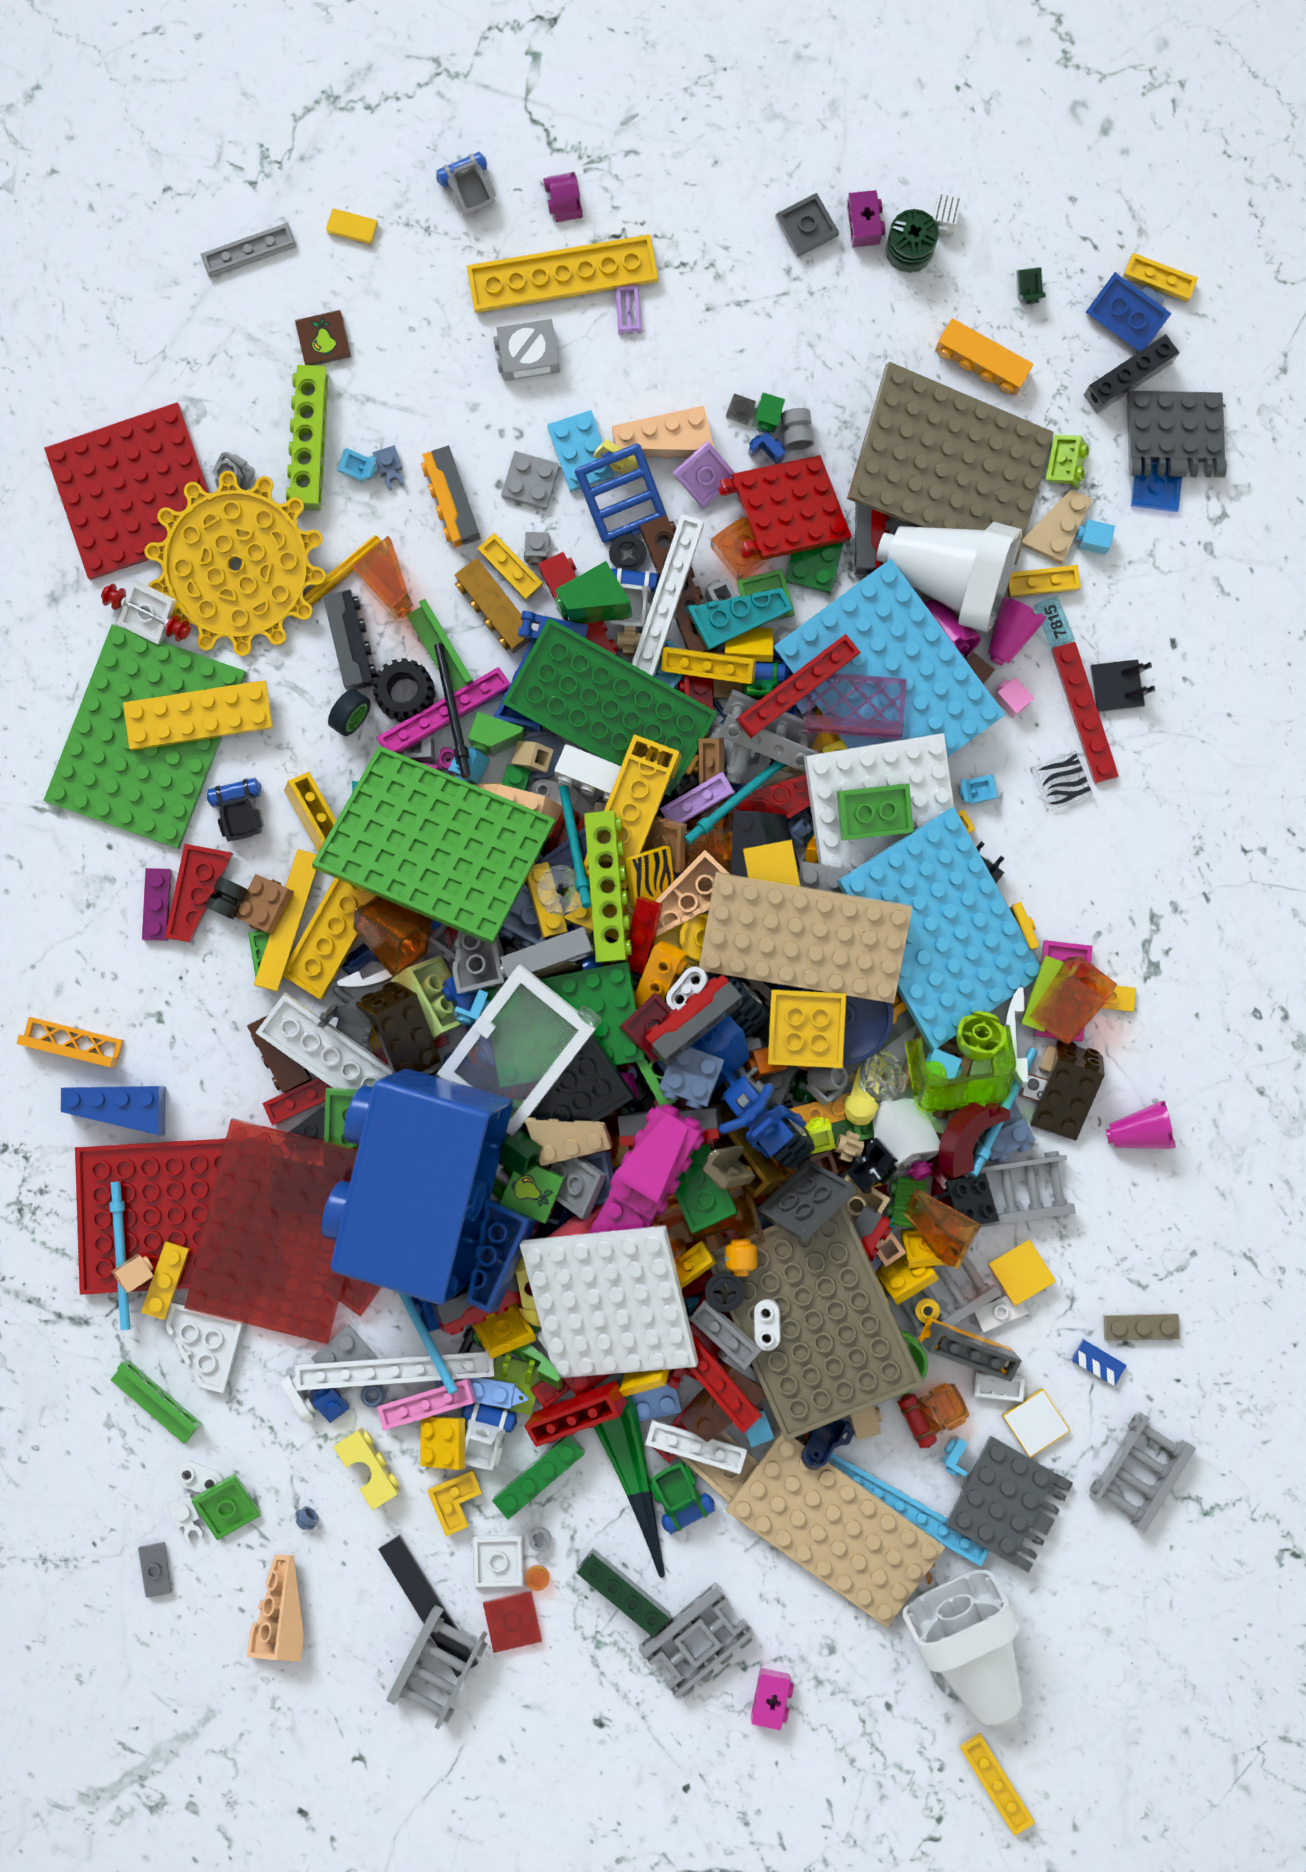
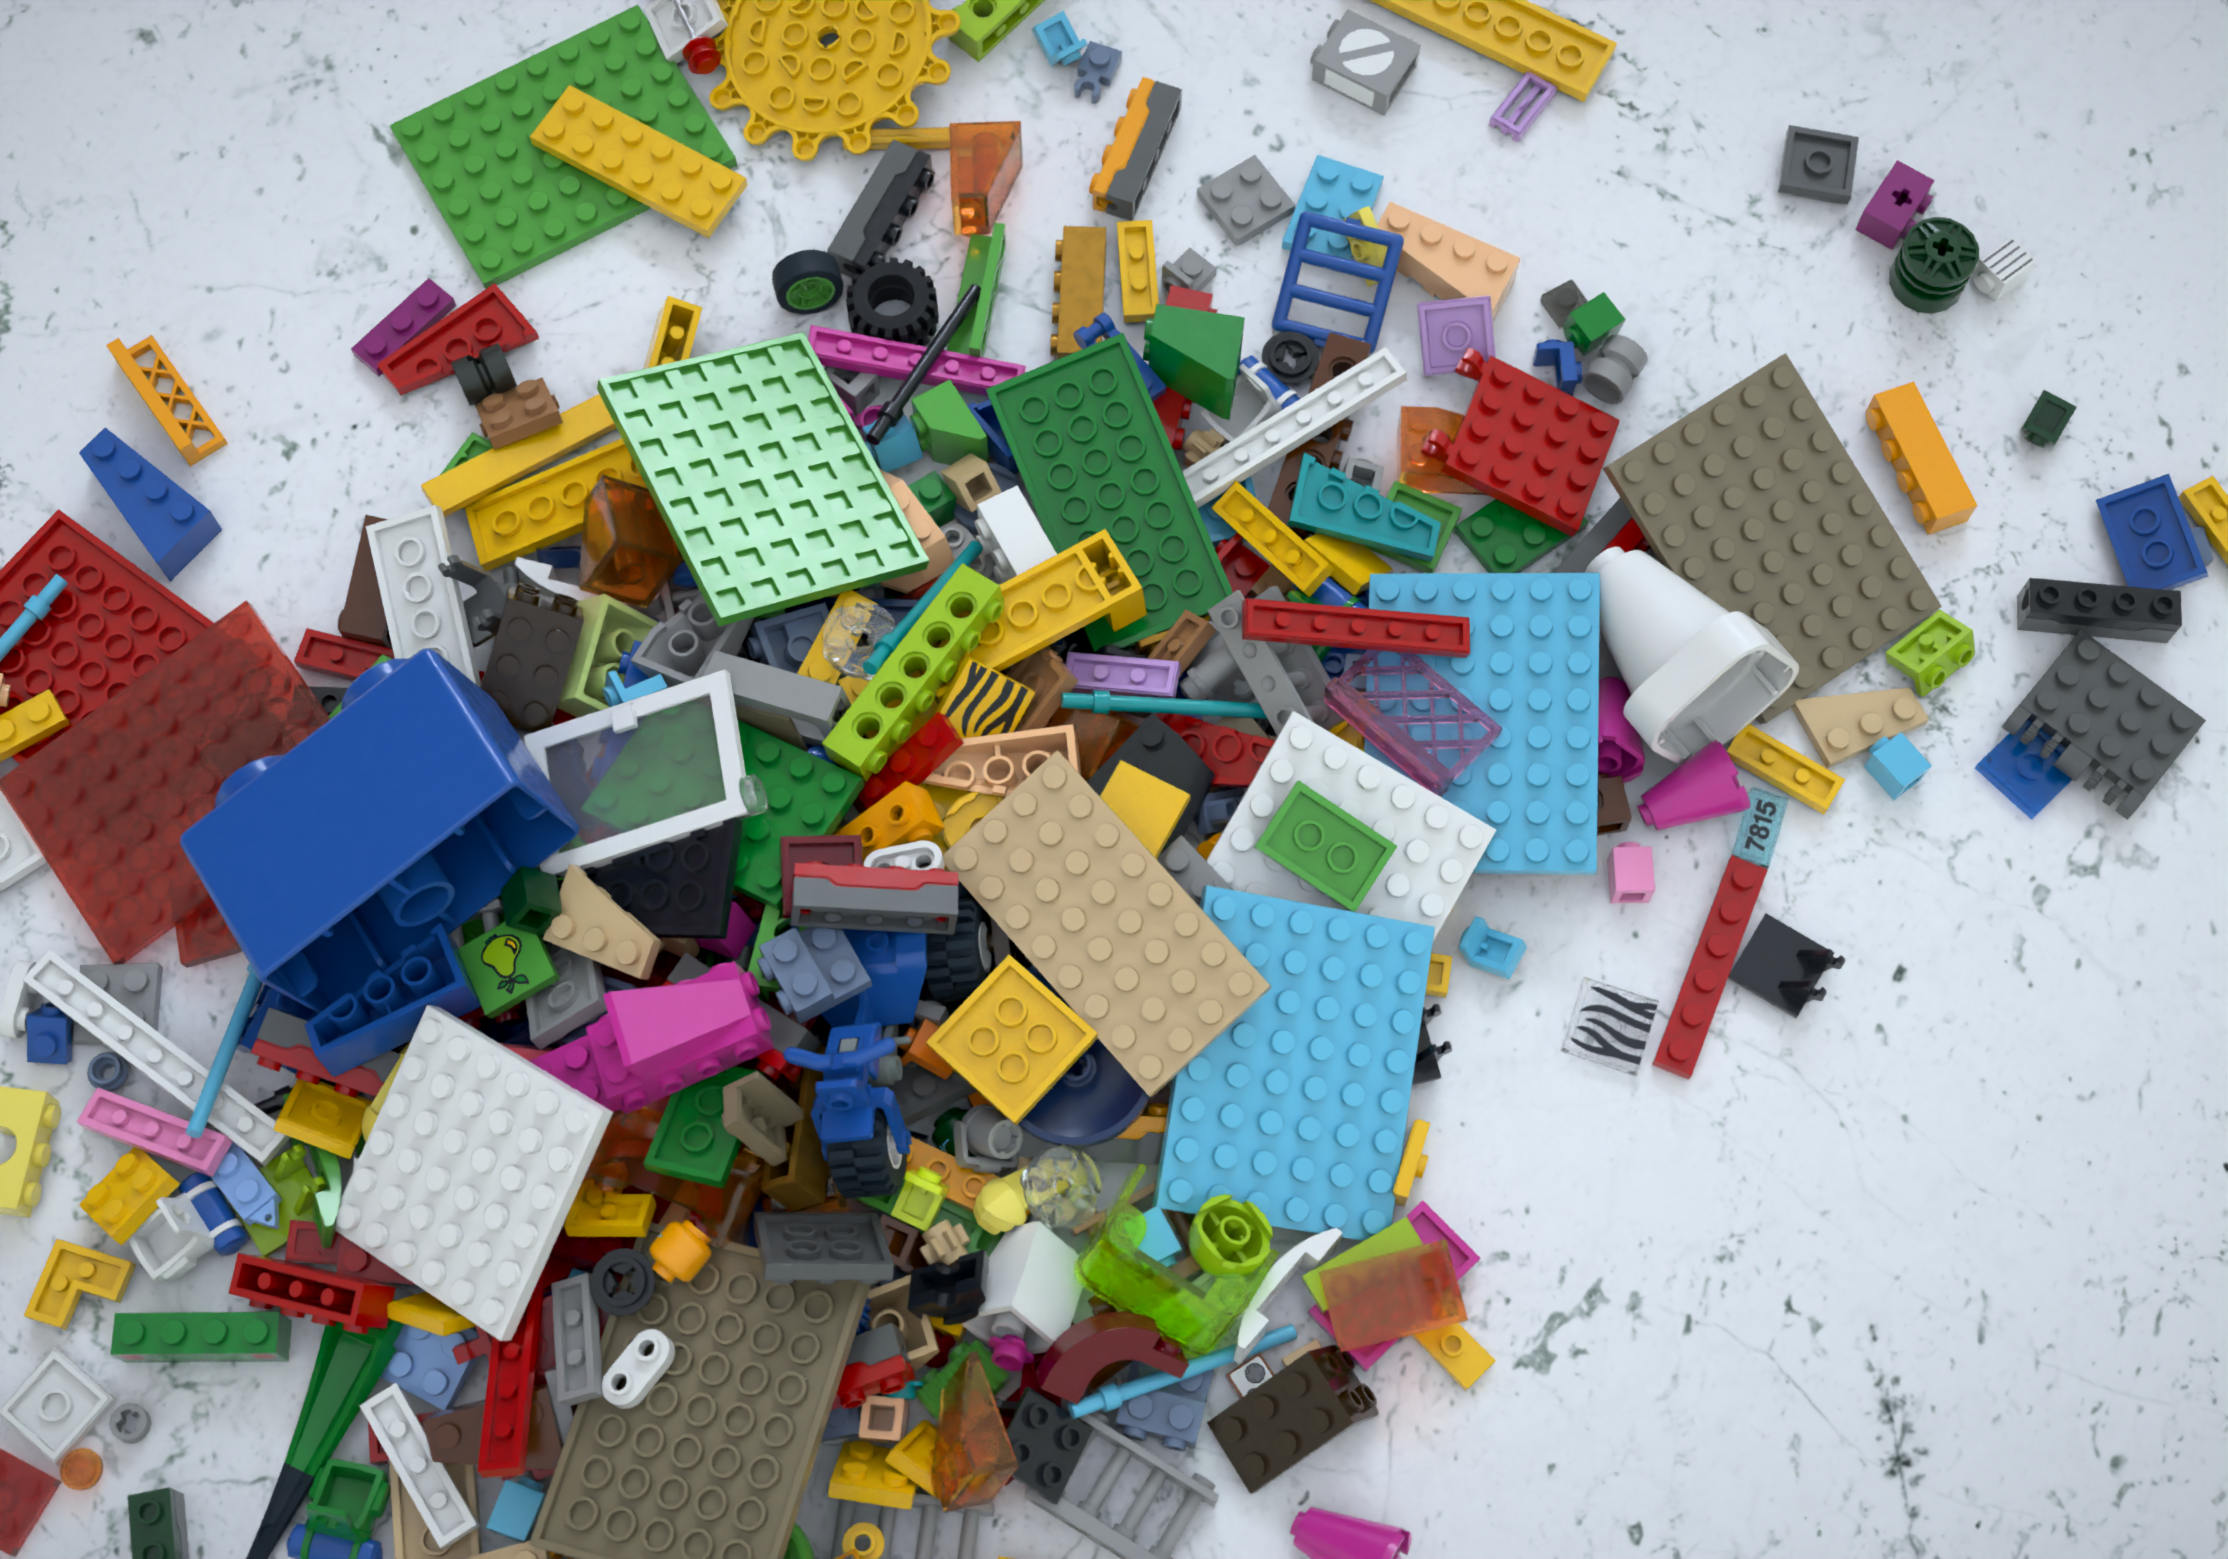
camera: 40 degrees right, 15 degrees down
(237, 808) = (587, 290): black piece -> none

